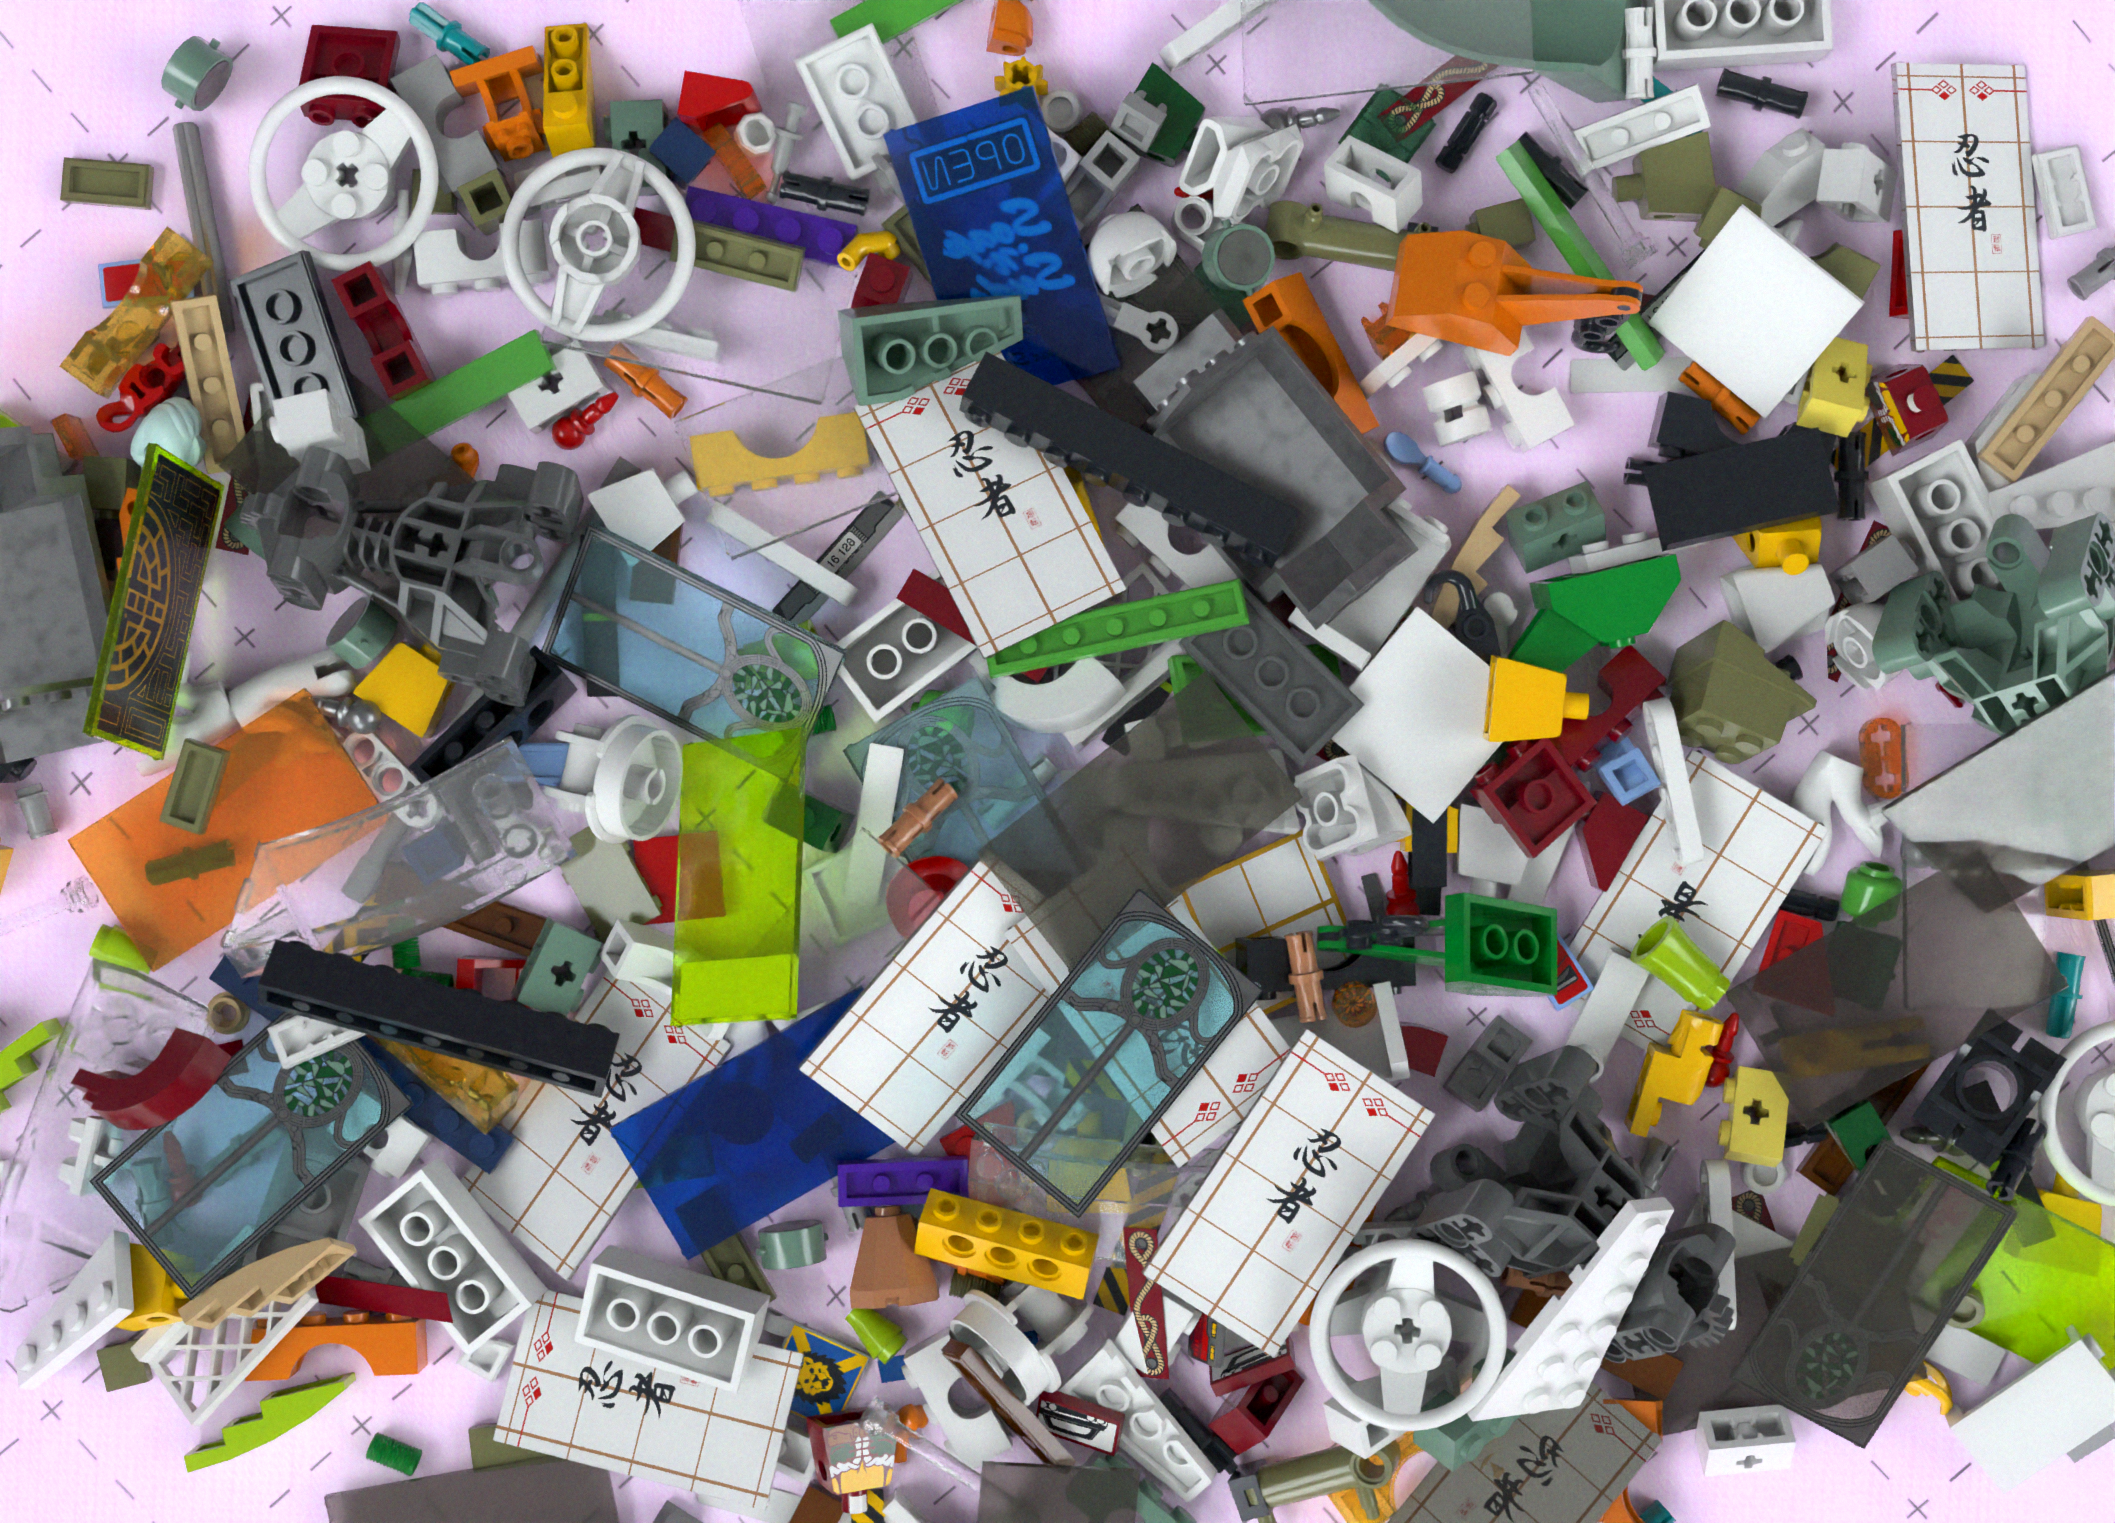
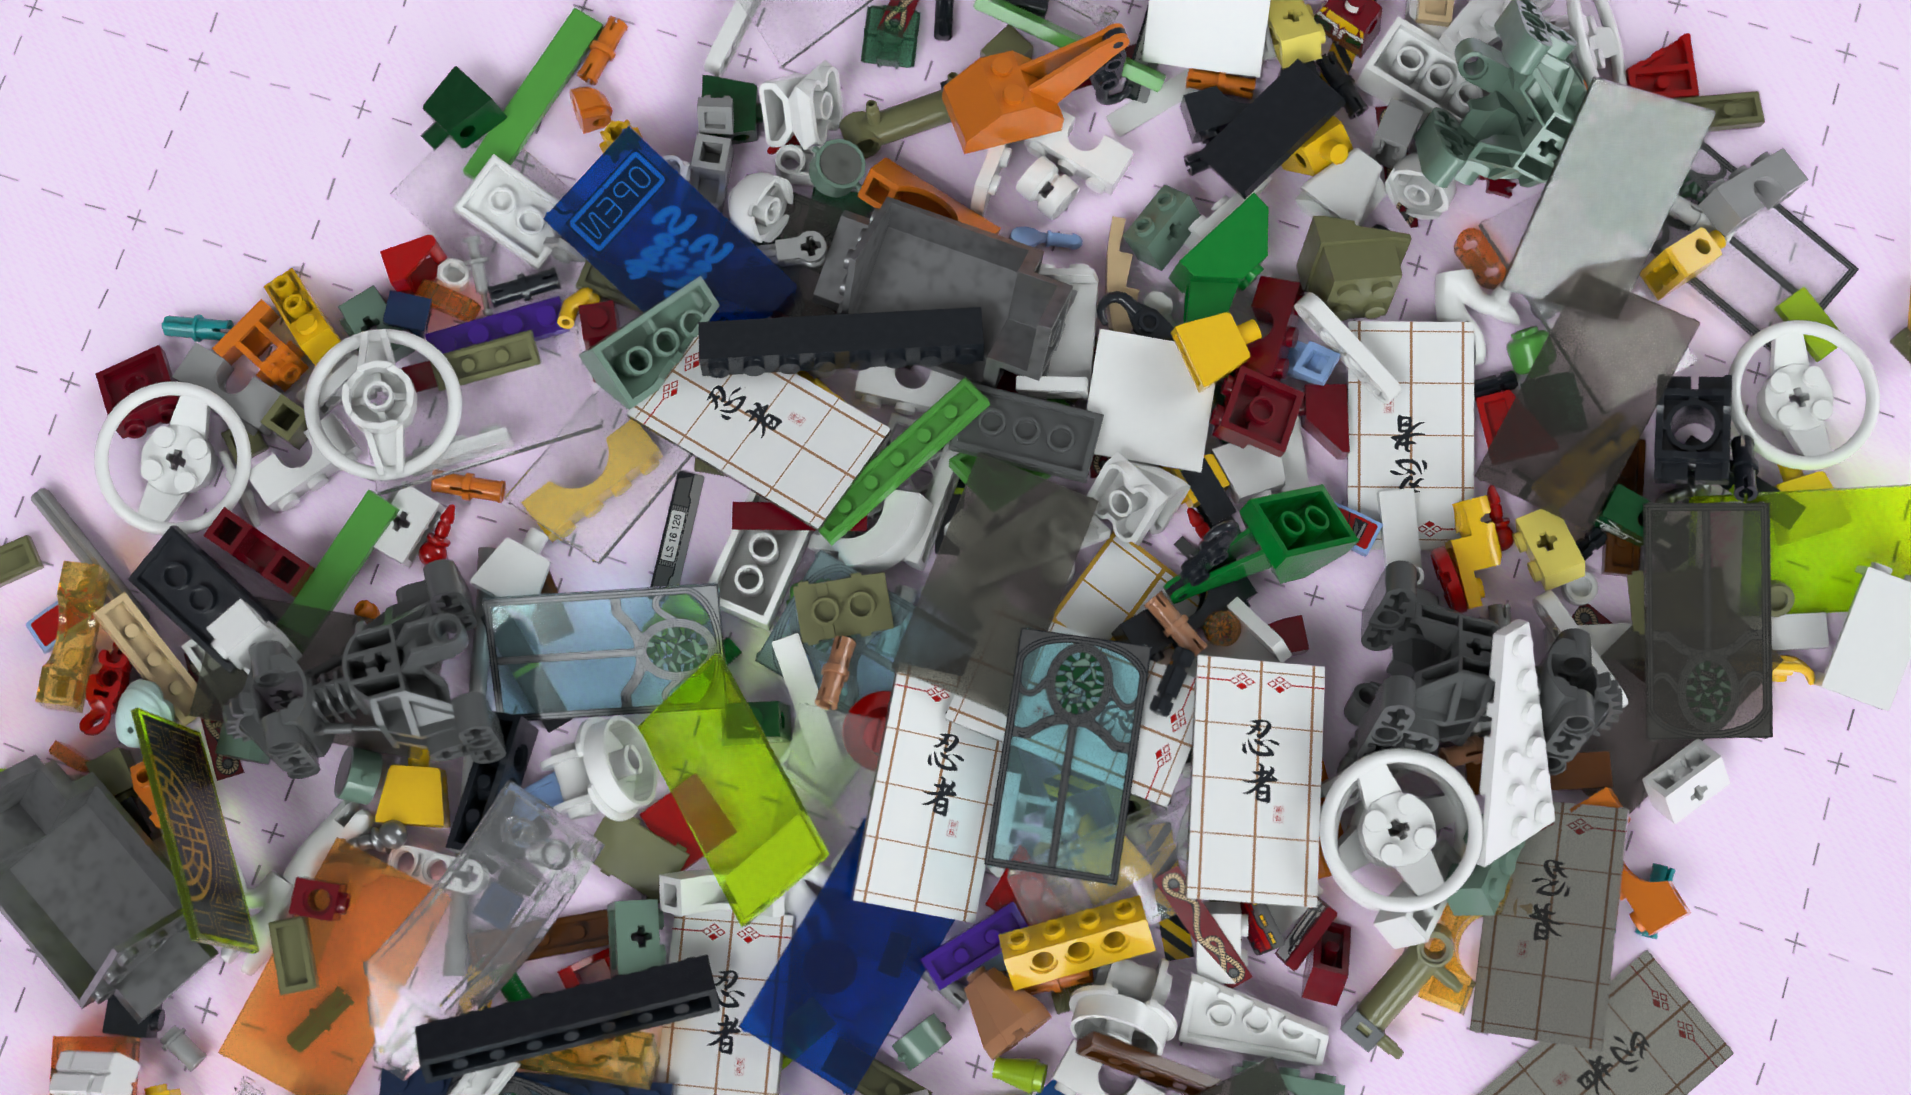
camera: 30 degrees left, 10 degrees down
(197, 73) = (29, 450): sand green piece -> none
(231, 746) = (304, 899): none -> dark red brick
(806, 570) = (647, 552): white beam -> none
(966, 750) = (843, 607): none -> olive piece
(1061, 111) = (660, 140): white tile -> none
(1081, 1421) = (1209, 1049): tile -> none
(1085, 133) = (685, 142): olive piece -> none
(1210, 1444) = (1312, 1011): black piece -> none
(1262, 1040) = (1172, 681): none -> black axle
(1279, 118) = (830, 55): flat silver bar -> none
(1353, 184) = (889, 80): white brick -> none
(1385, 338) = (967, 165): clear orange tile -> none
(1487, 1063) = (1341, 623): flat silver slope -> none
(1626, 1090) = (1448, 579): none -> red tile
(1680, 963) = (1431, 471): lime plant -> none
(2064, 1003) = (1706, 347): teal axle -> none

